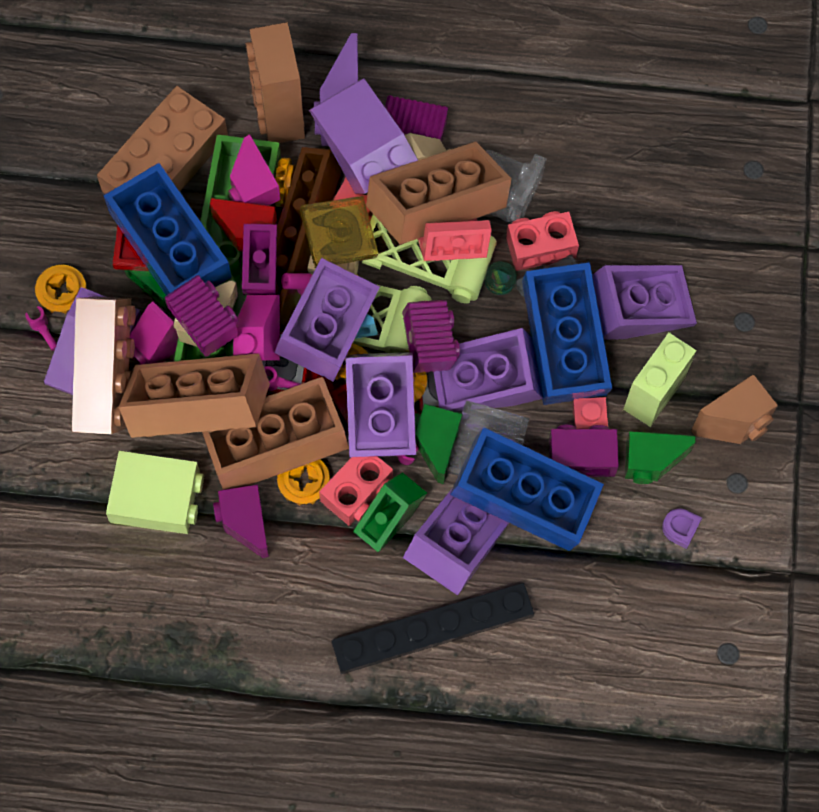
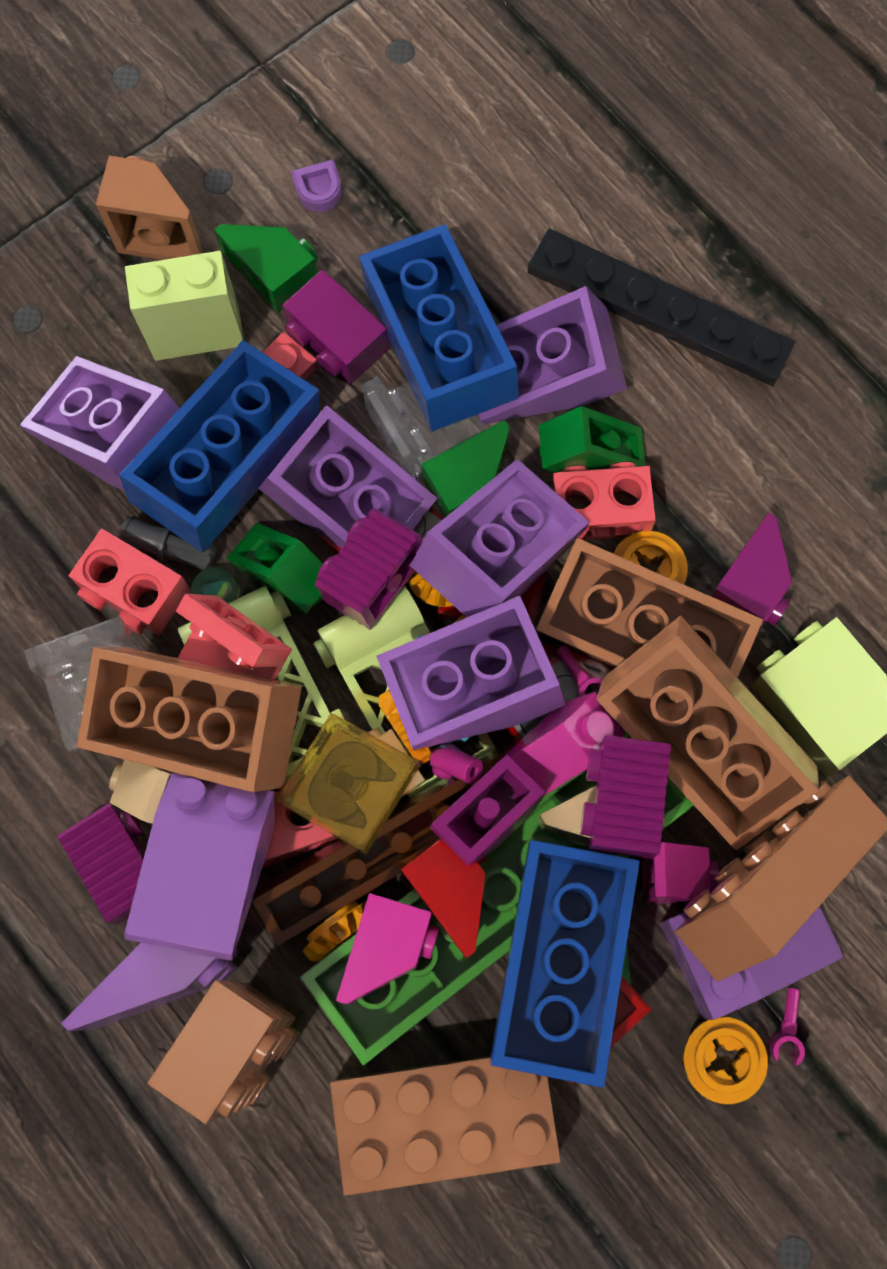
camera: 130 degrees left, 5 degrees up
(482, 311) = (280, 564): none -> green slope

